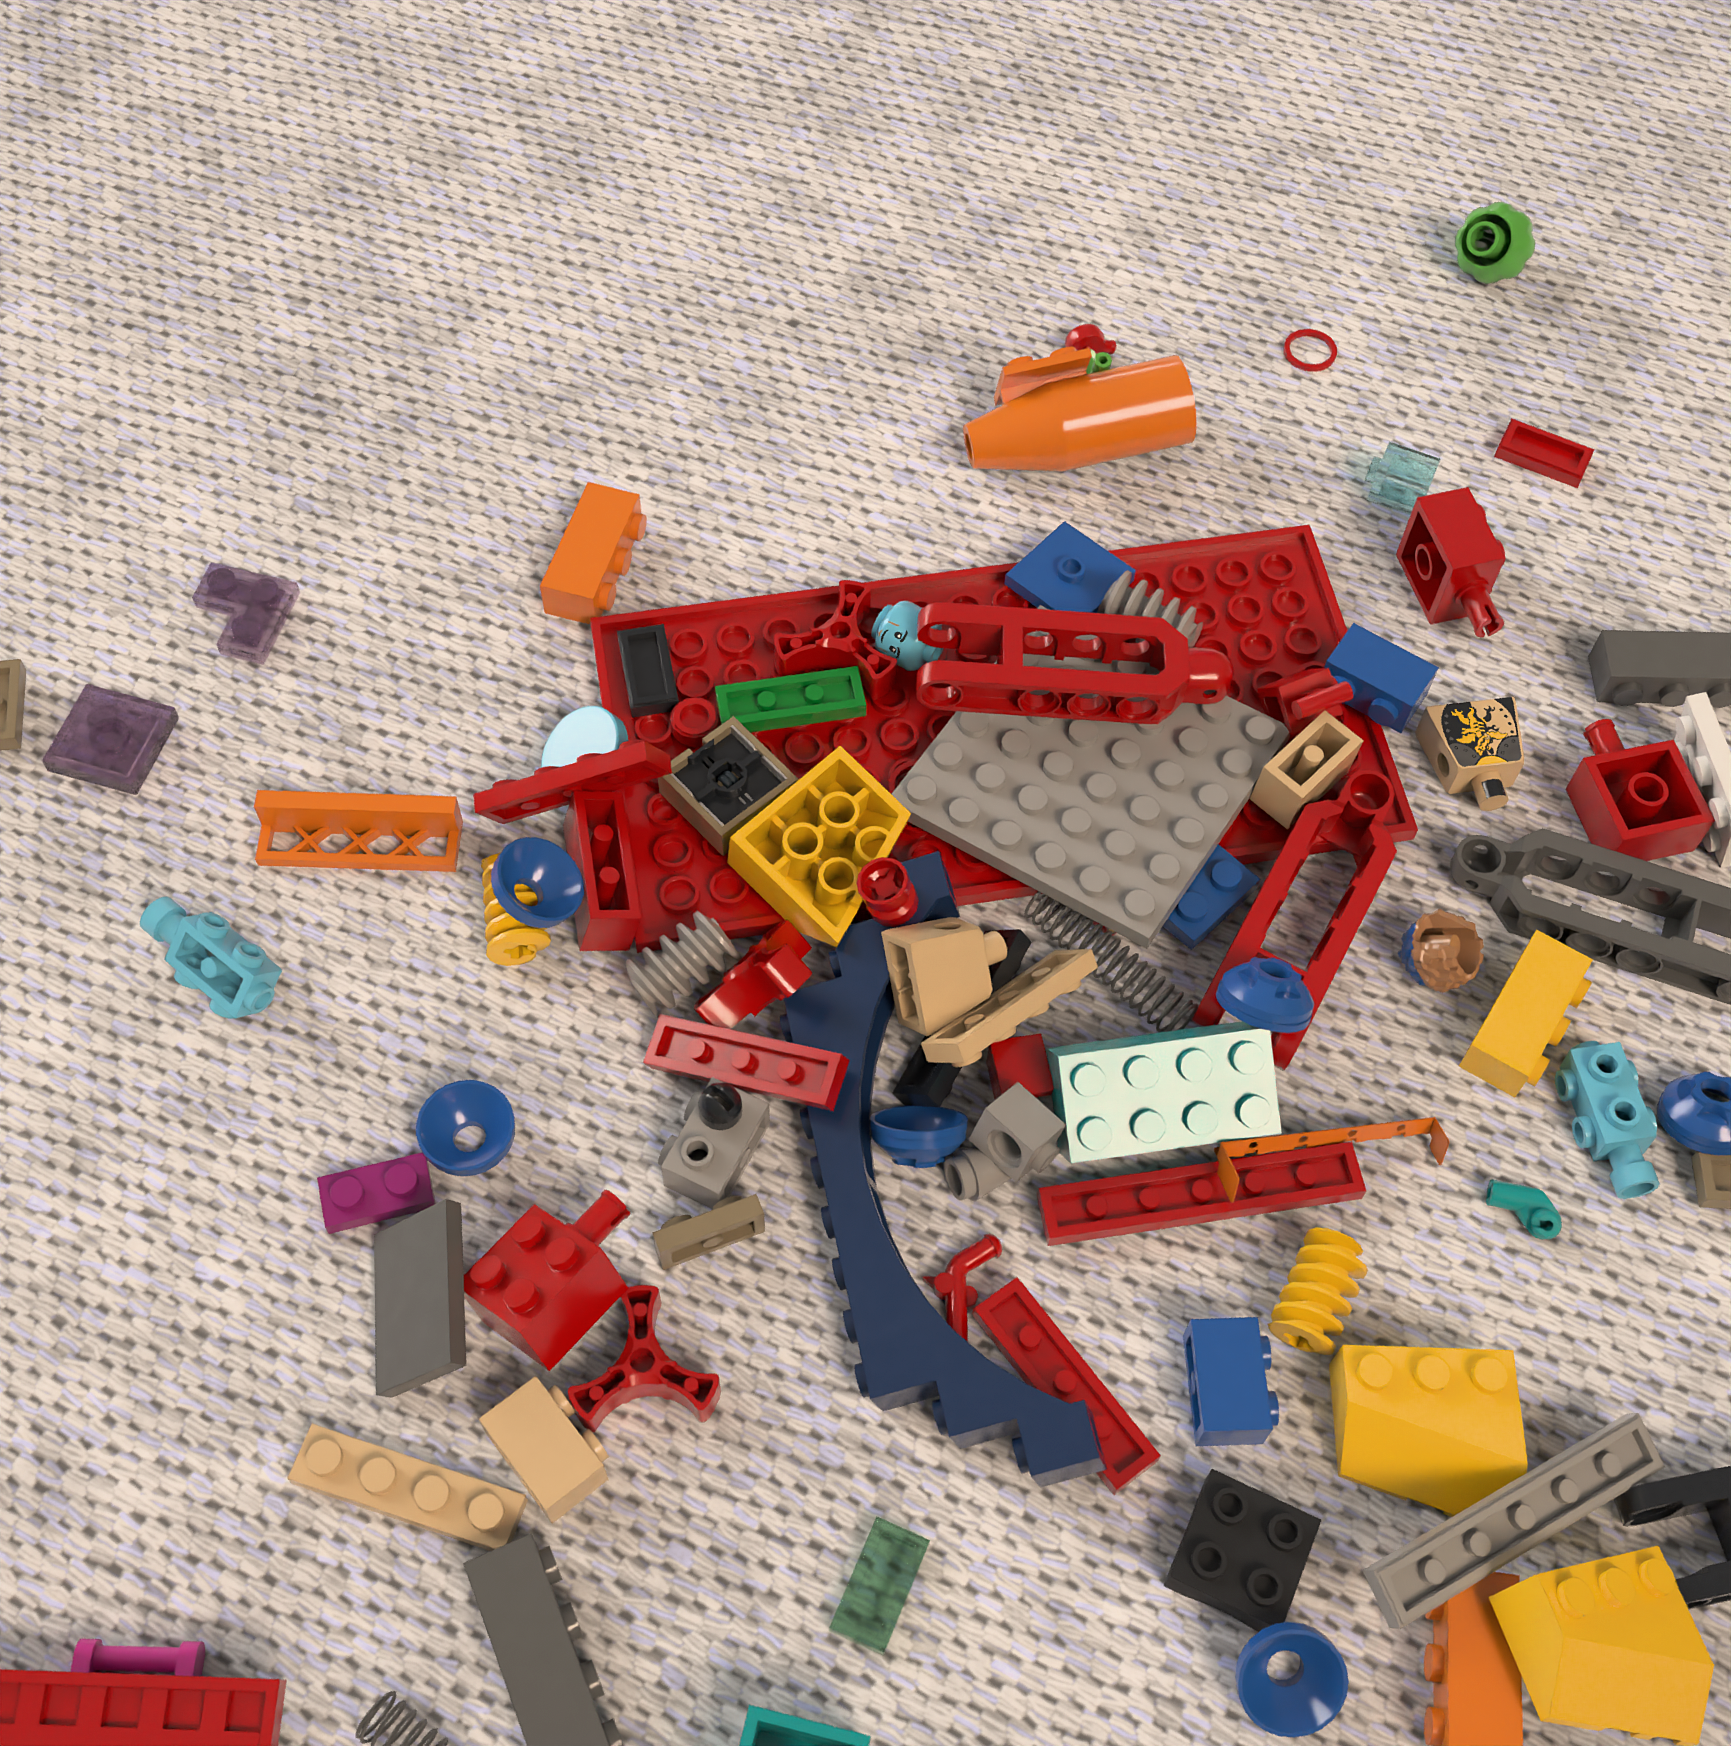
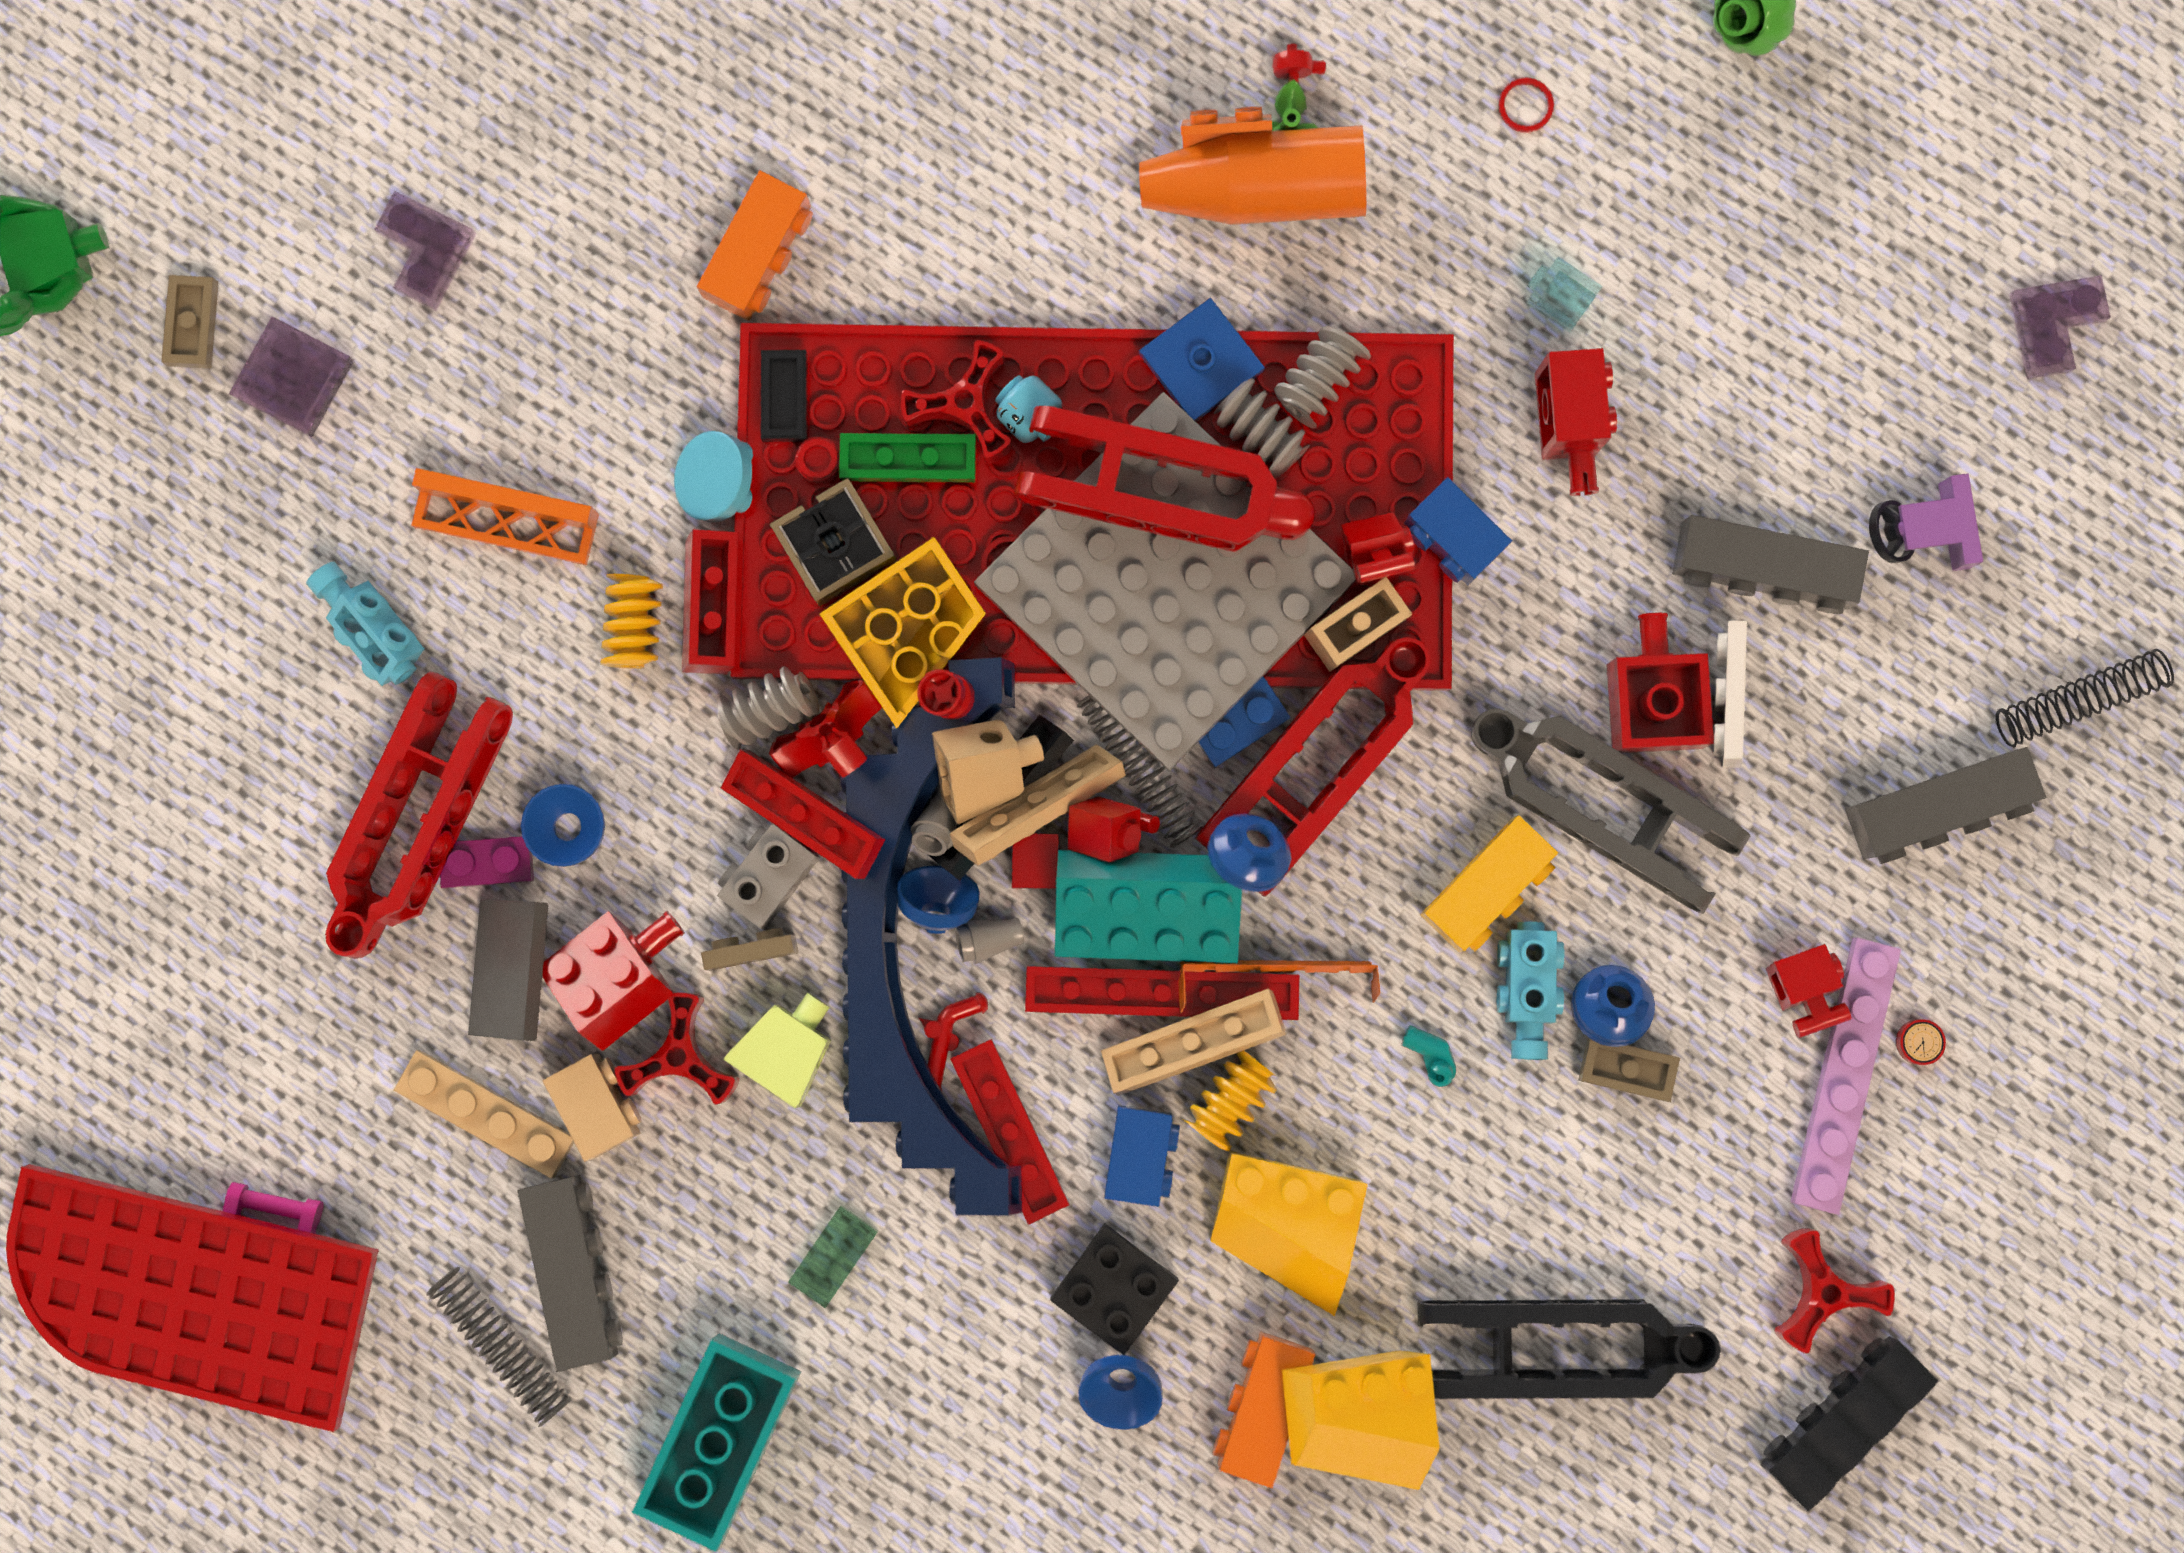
camera: 15 degrees right, 25 degrees up
(273, 1085) = (359, 910): none -> red piece
(546, 871) = (665, 617): blue piece -> none
(553, 786) = (708, 517): red plate -> none
(713, 1113) = (779, 851): black hinge -> none
(770, 1337) = (784, 1050): none -> yellowish green torso
(899, 1055) = (933, 827): none -> light grey cone
(1018, 1133) = (1016, 924): light grey brick -> none
(1095, 1014) = (1107, 828): none -> red brick
(1196, 561) = (1318, 373): none -> light grey piece
(1255, 1233) = (1193, 1042): none -> tan plate
(1441, 951) = (1431, 816): medium nougat piece -> none
(1474, 747) = (1533, 612): torso -> none
(1512, 1520) = (1325, 1314): light grey tile -> none
(1544, 453) = (1721, 279): red tile -> none

